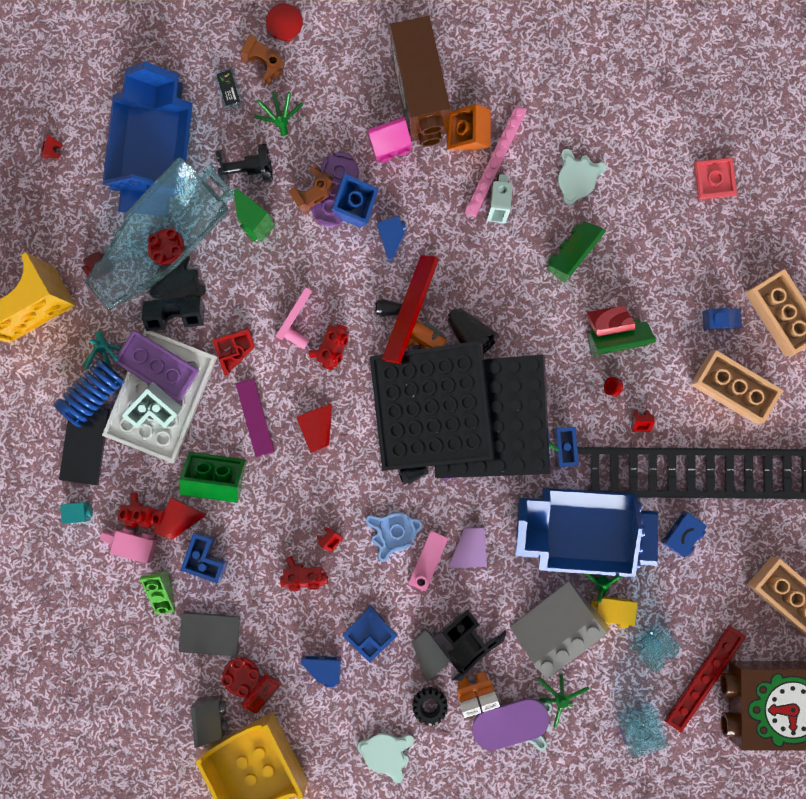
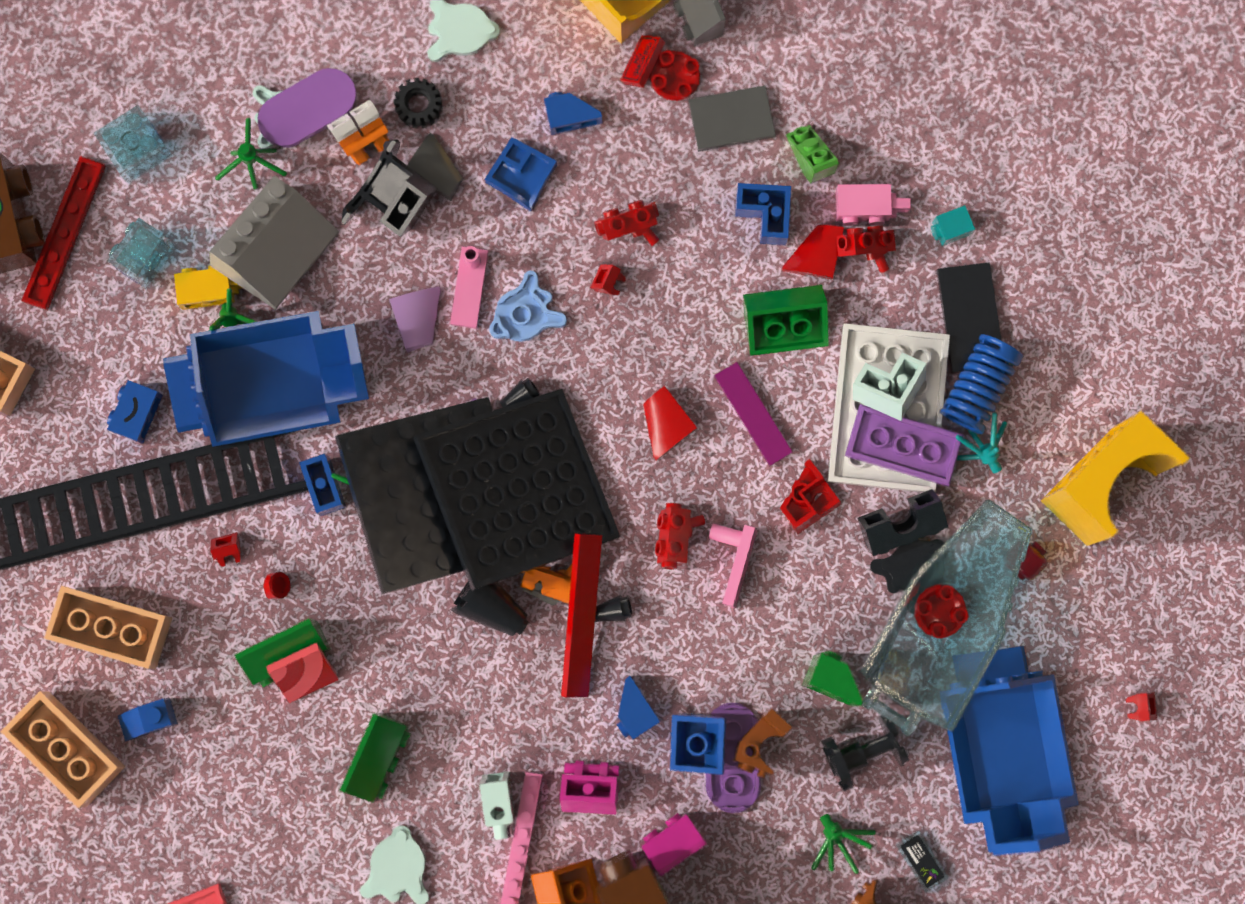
camera: 165 degrees right, 5 degrees down
(437, 189) = (589, 793): none -> dark pink brick

